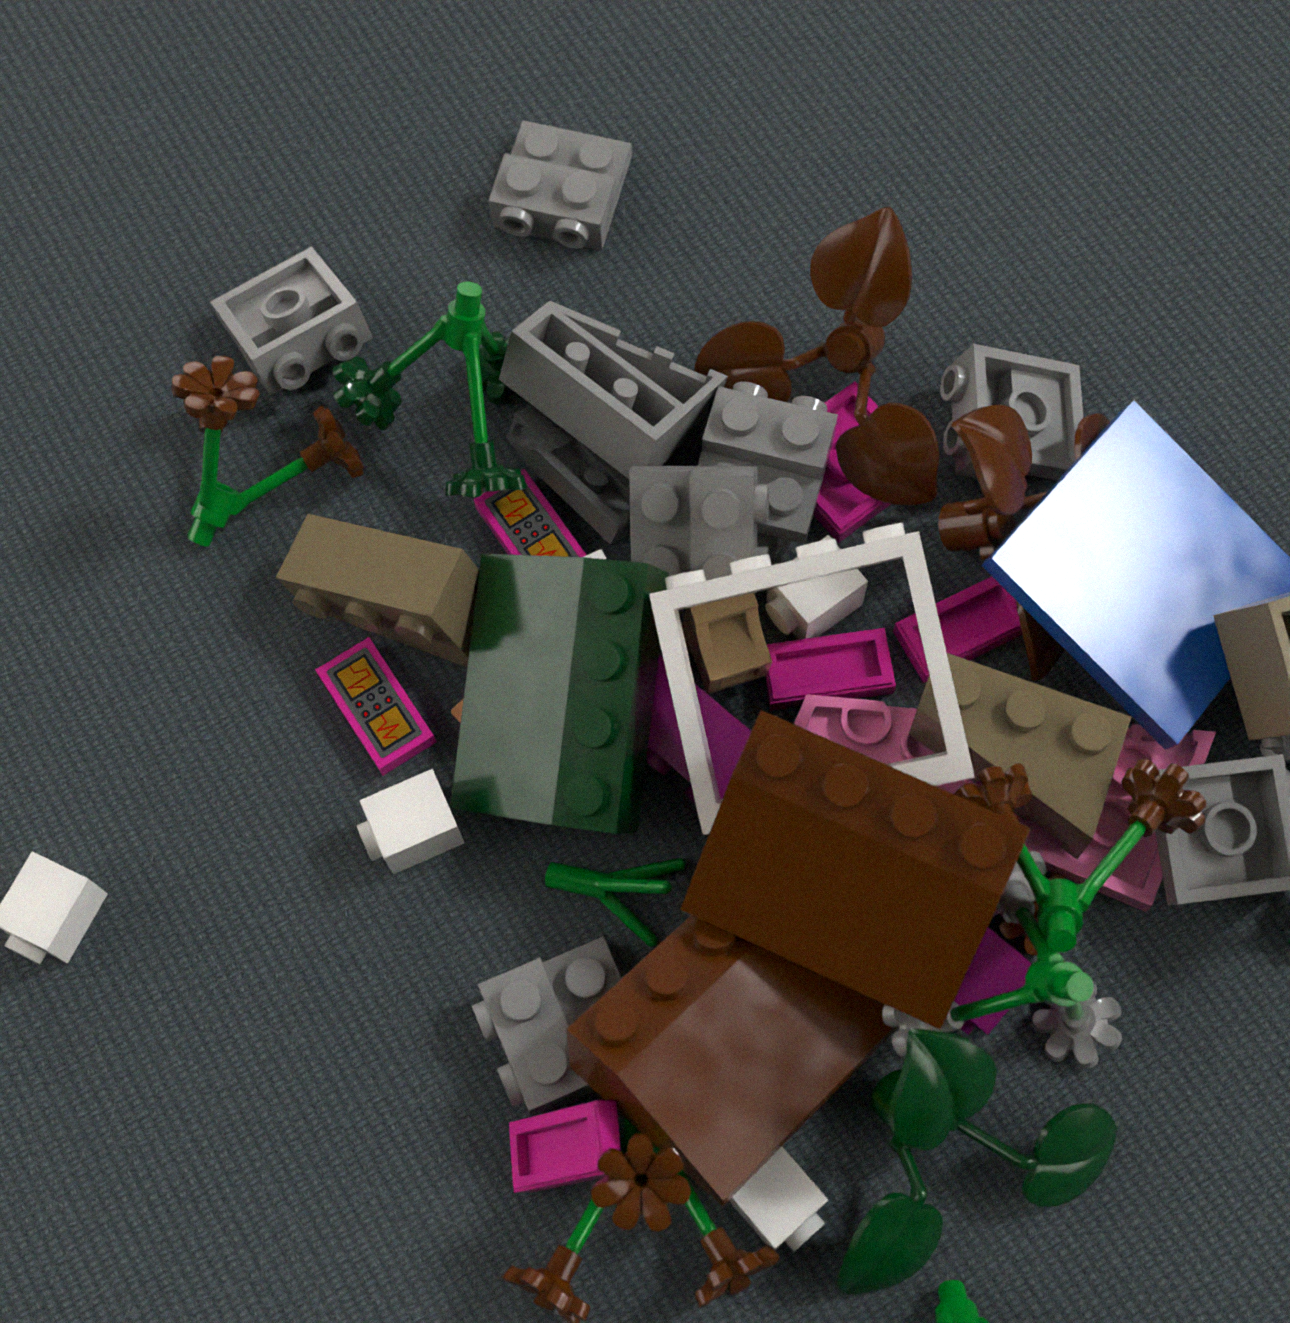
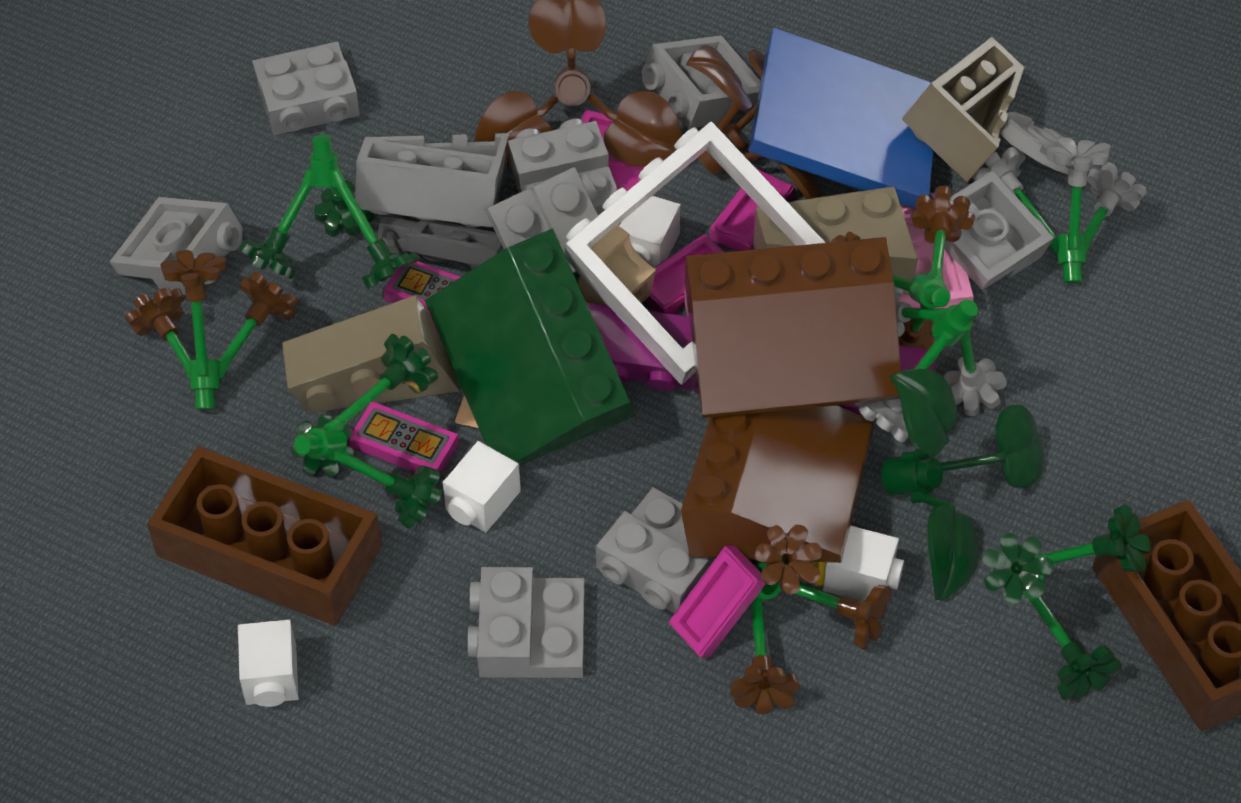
camera: 35 degrees left, 15 degrees down
(137, 752) = (265, 535): none -> reddish brown brick
(283, 671) = (327, 442): none -> dark green plant
(352, 1028) = (527, 624): none -> light grey plate
(601, 886) = (629, 463): green plant -> none

